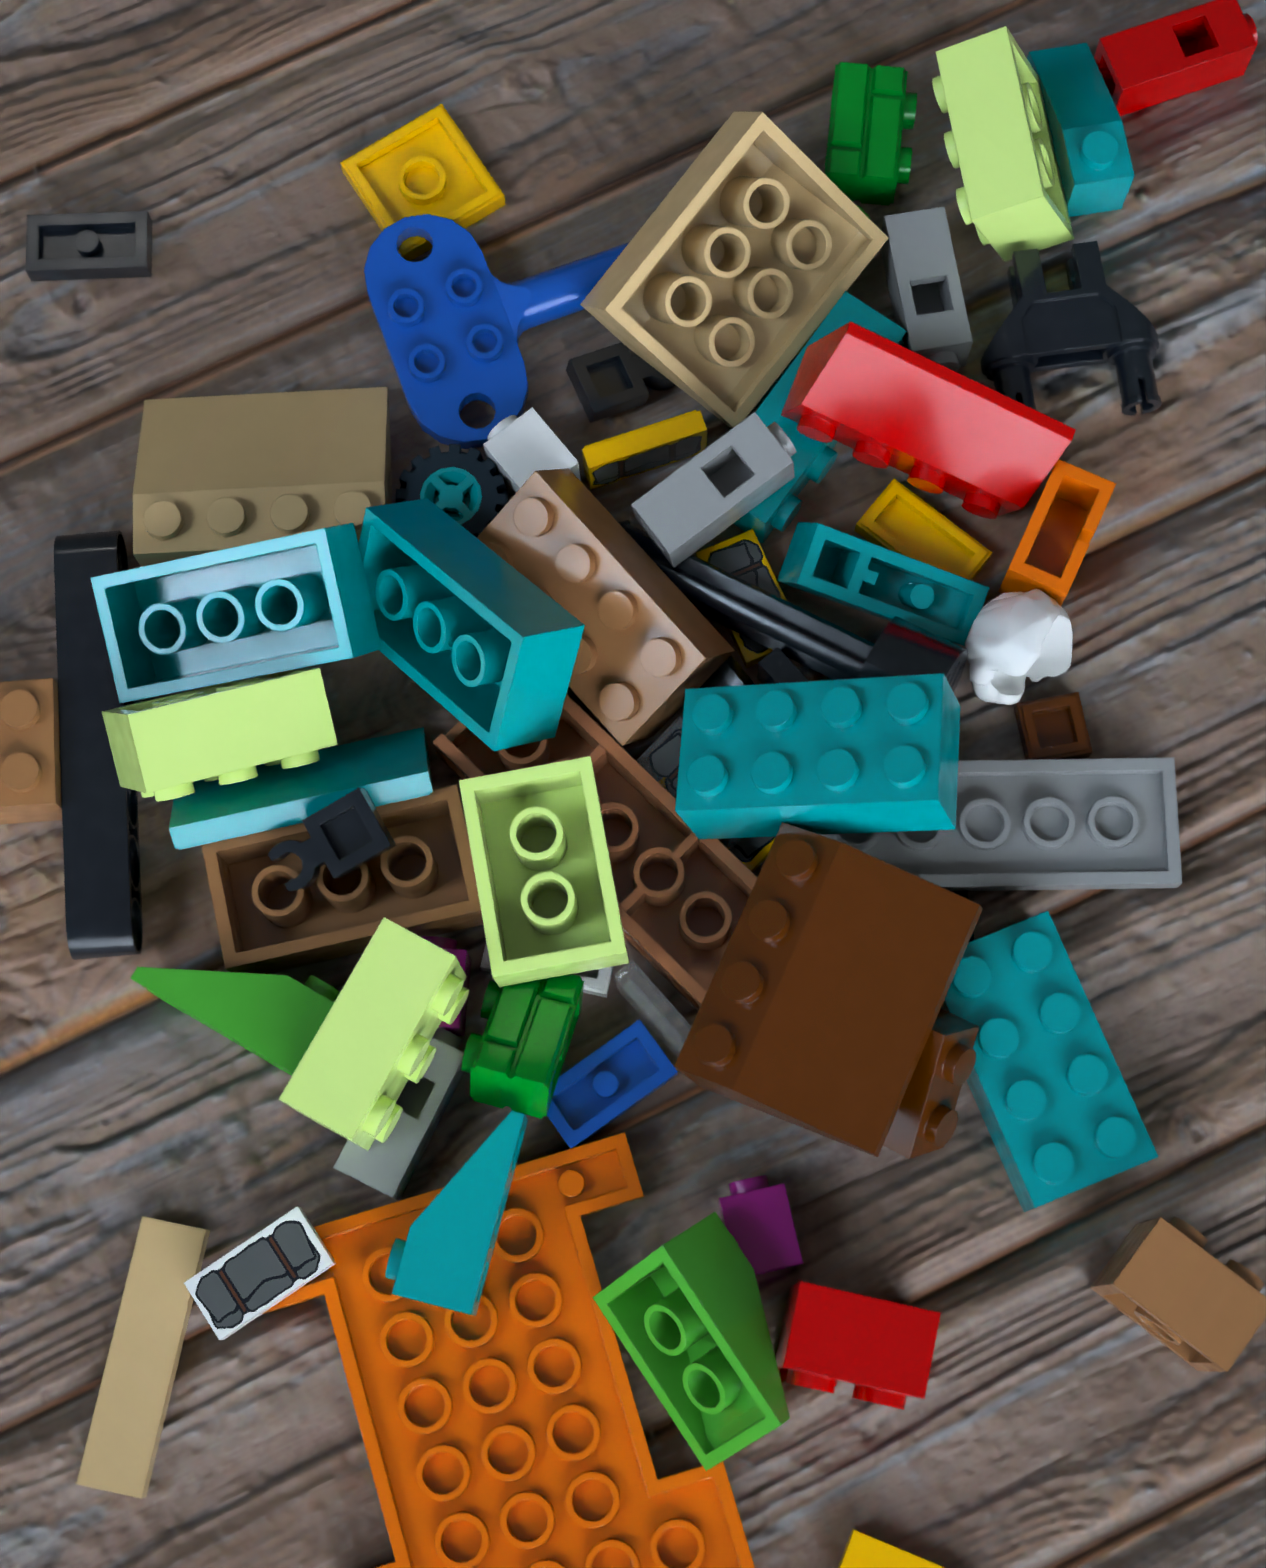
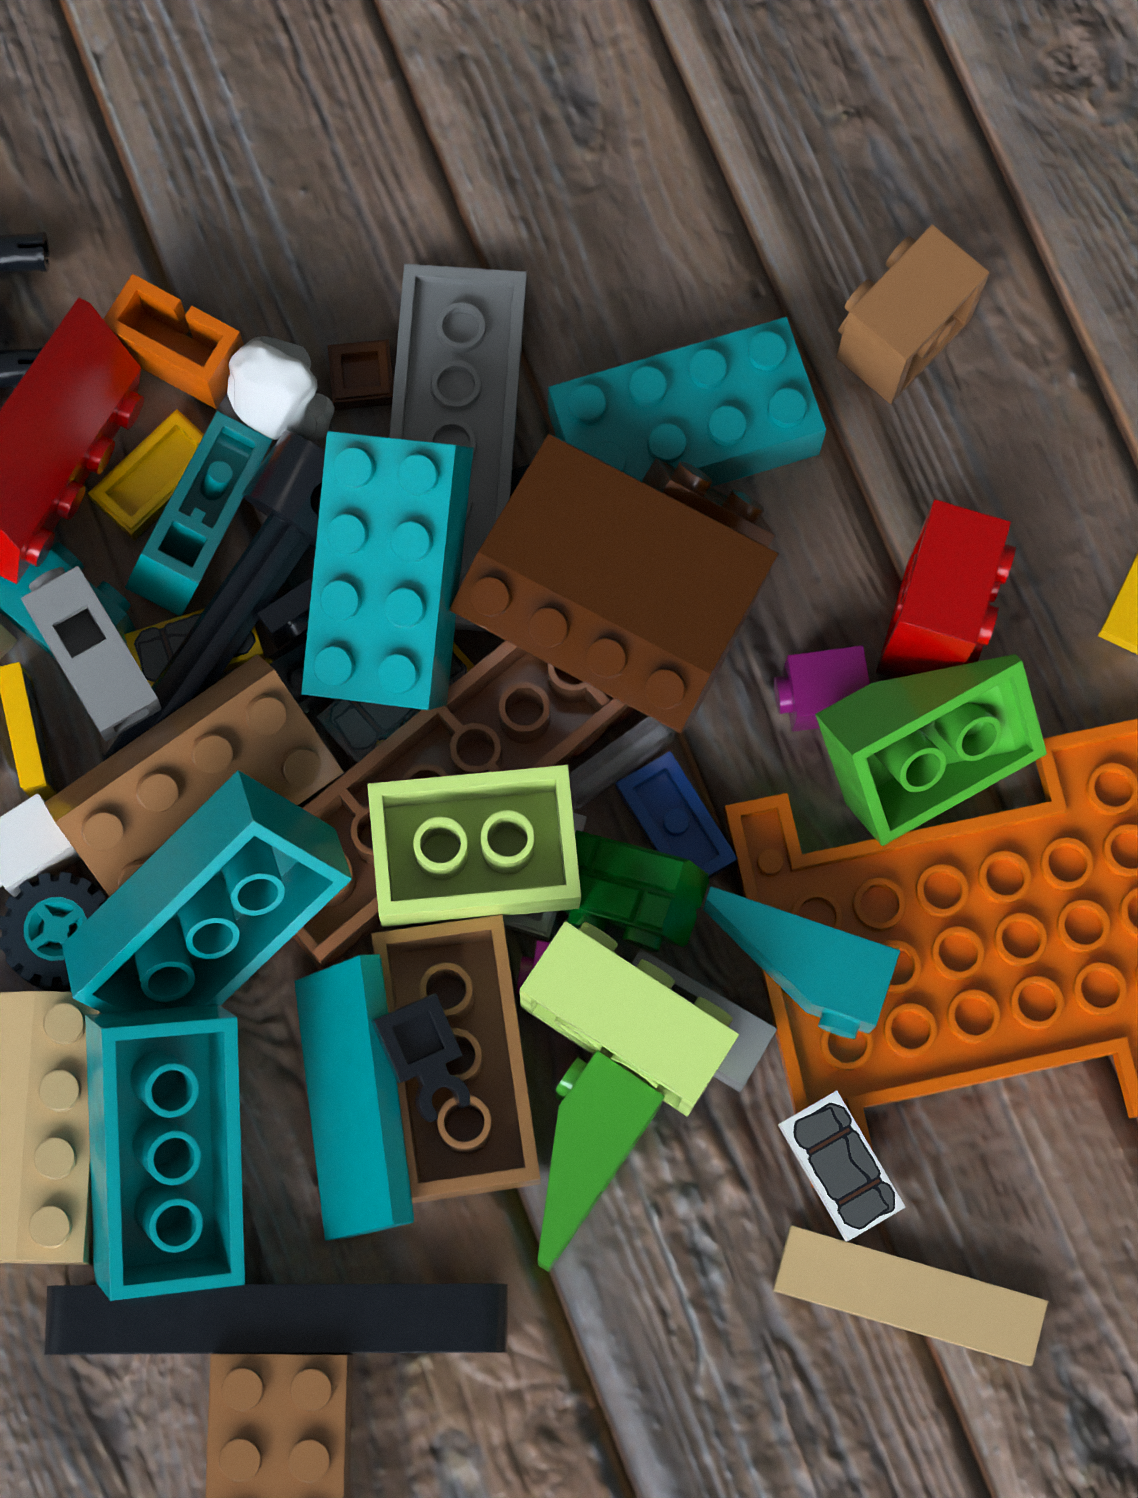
camera: 90 degrees left, 0 degrees up
(220, 732) = (296, 1174): yellowish green brick -> none

